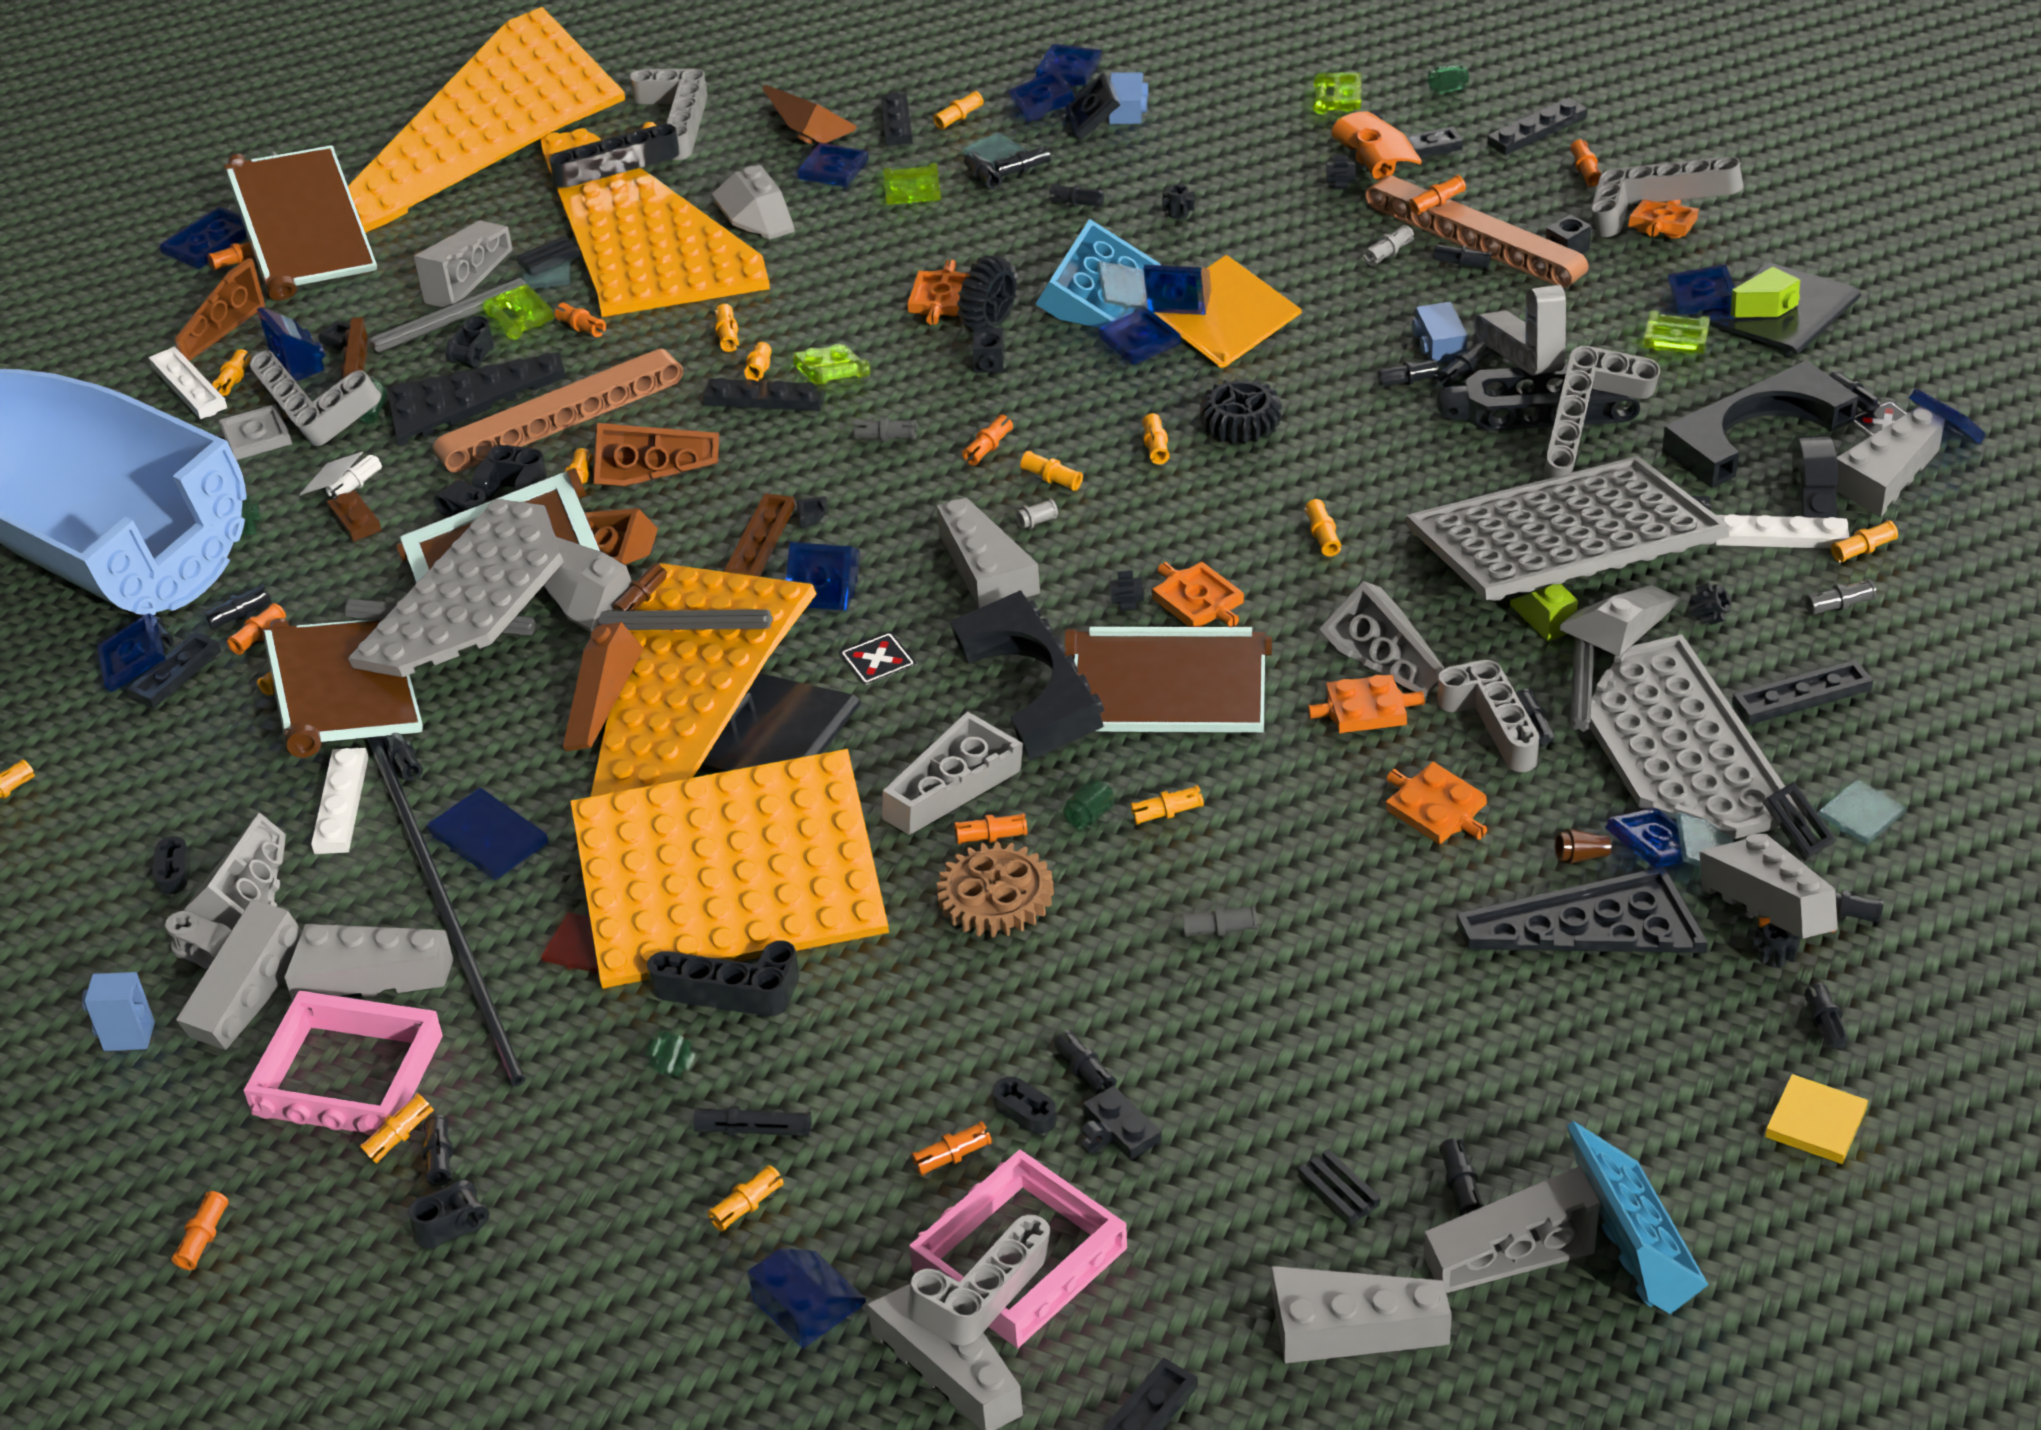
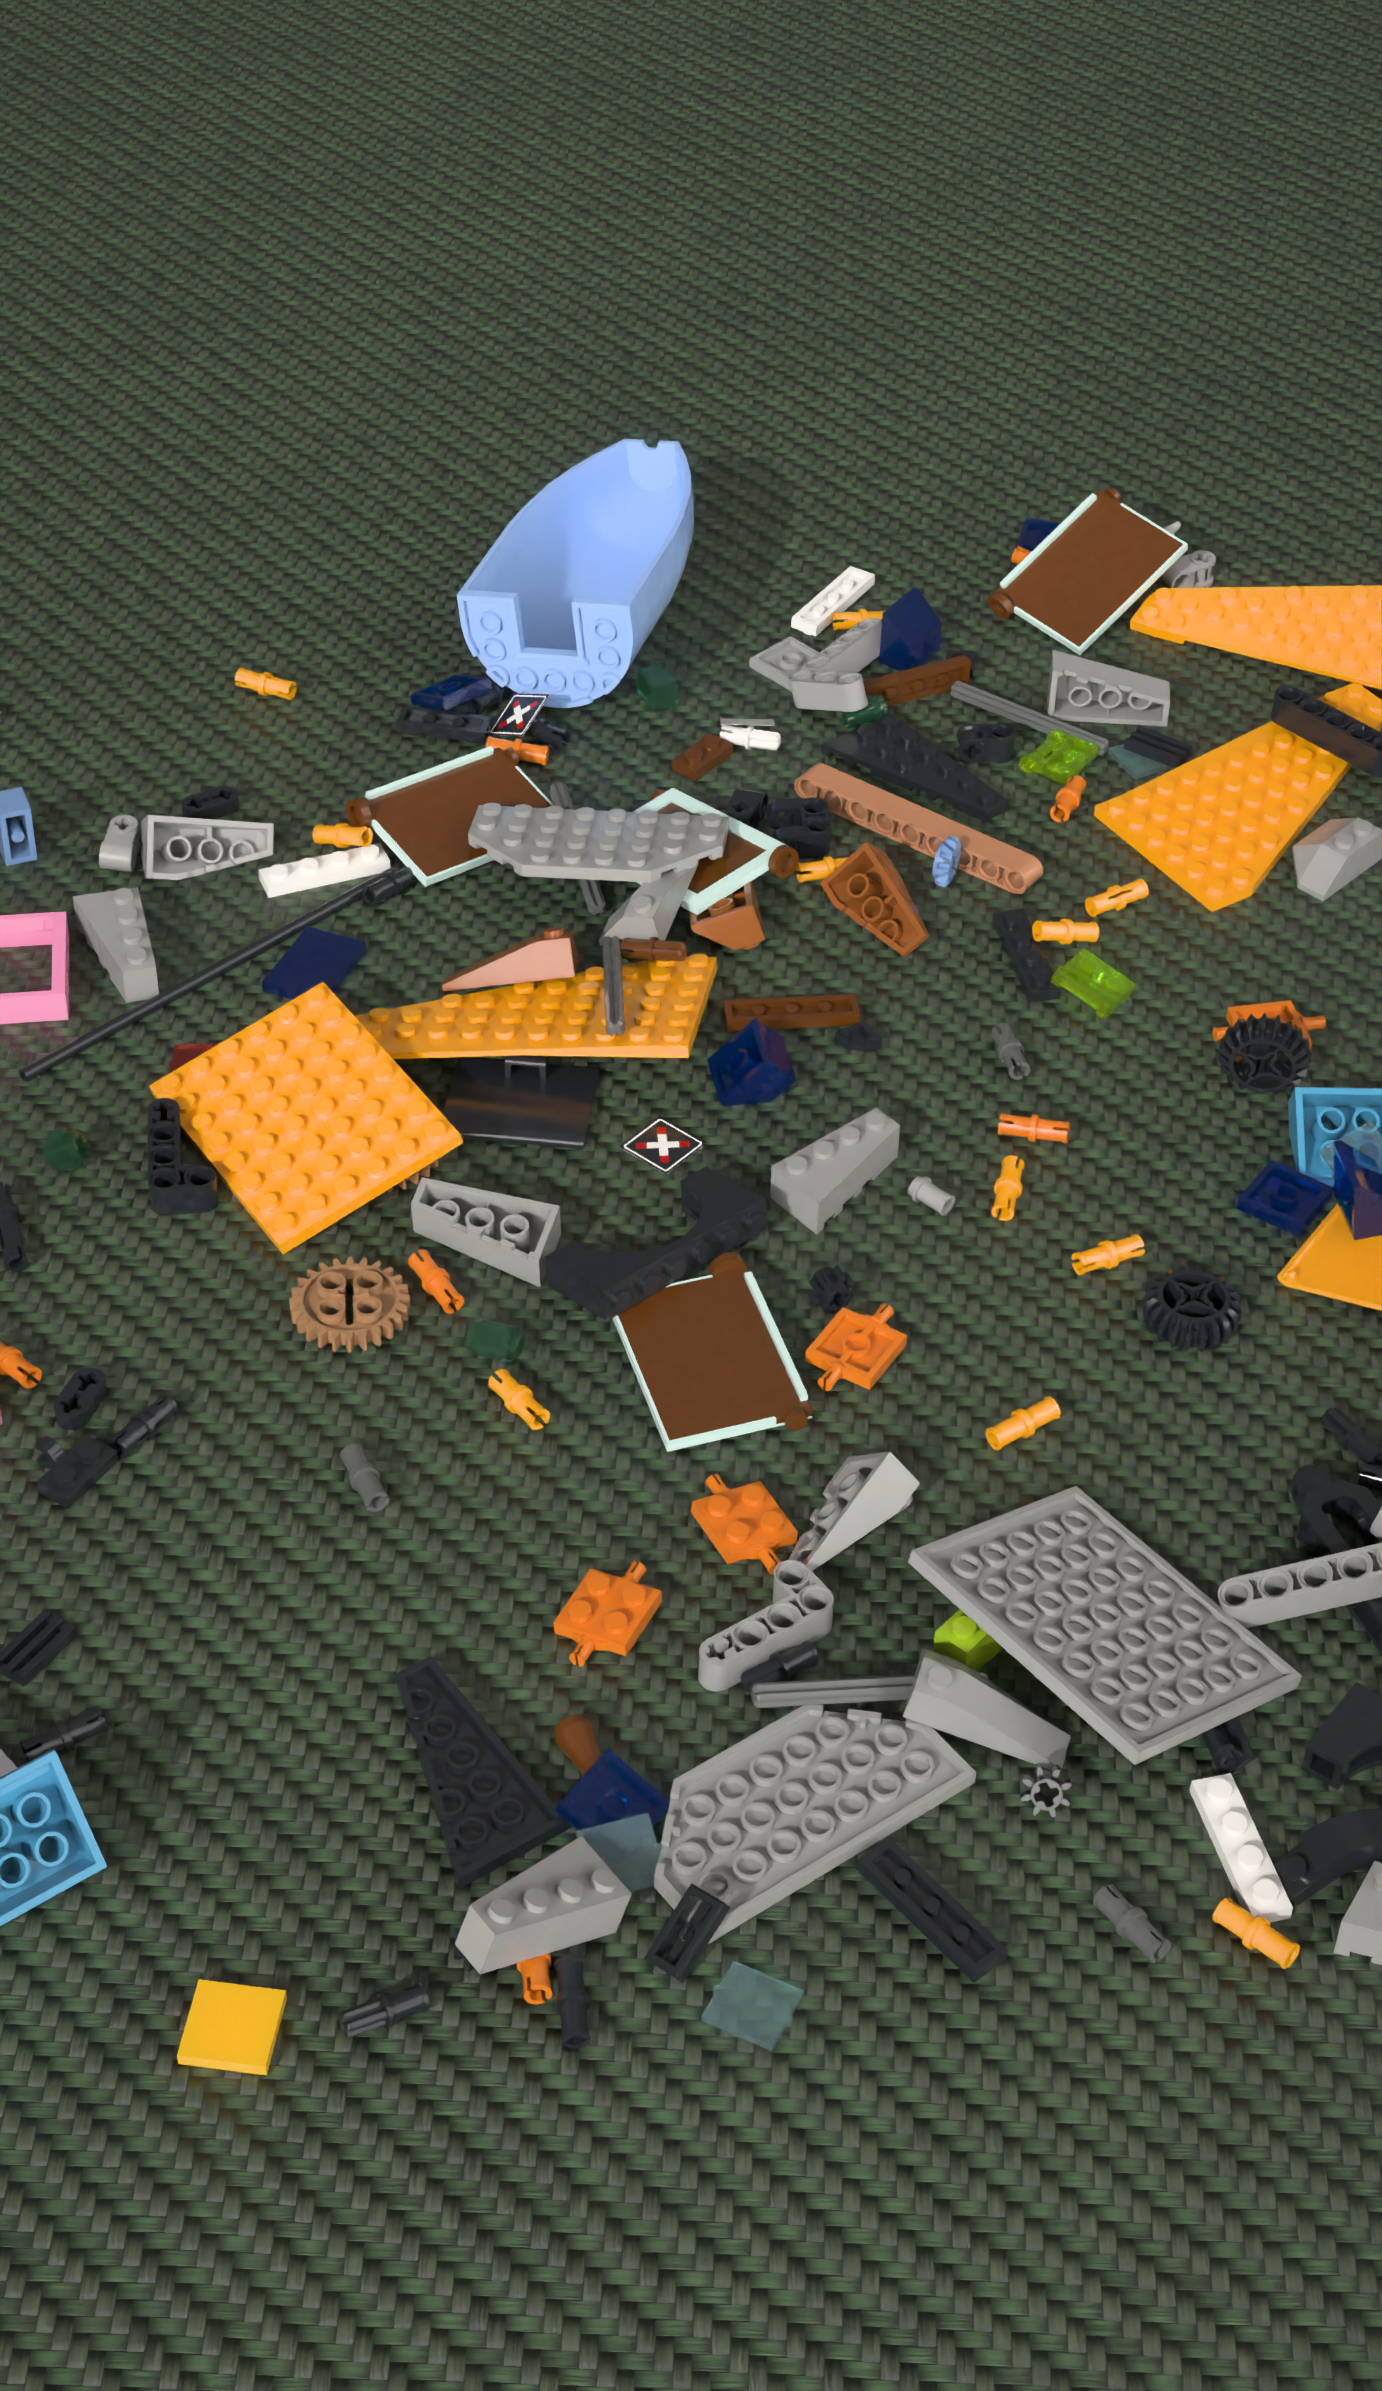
camera: 65 degrees right, 0 degrees up
(211, 609) = (518, 714): none -> black sticker
(223, 310) = (944, 580): dark orange wedge -> none
(241, 975) = (56, 877): light grey wedge -> none
(309, 769) = (342, 835): none -> light orange pin
(628, 399) = (946, 861): none -> medium blue gear
(988, 350) = (1184, 1088): black brick -> none

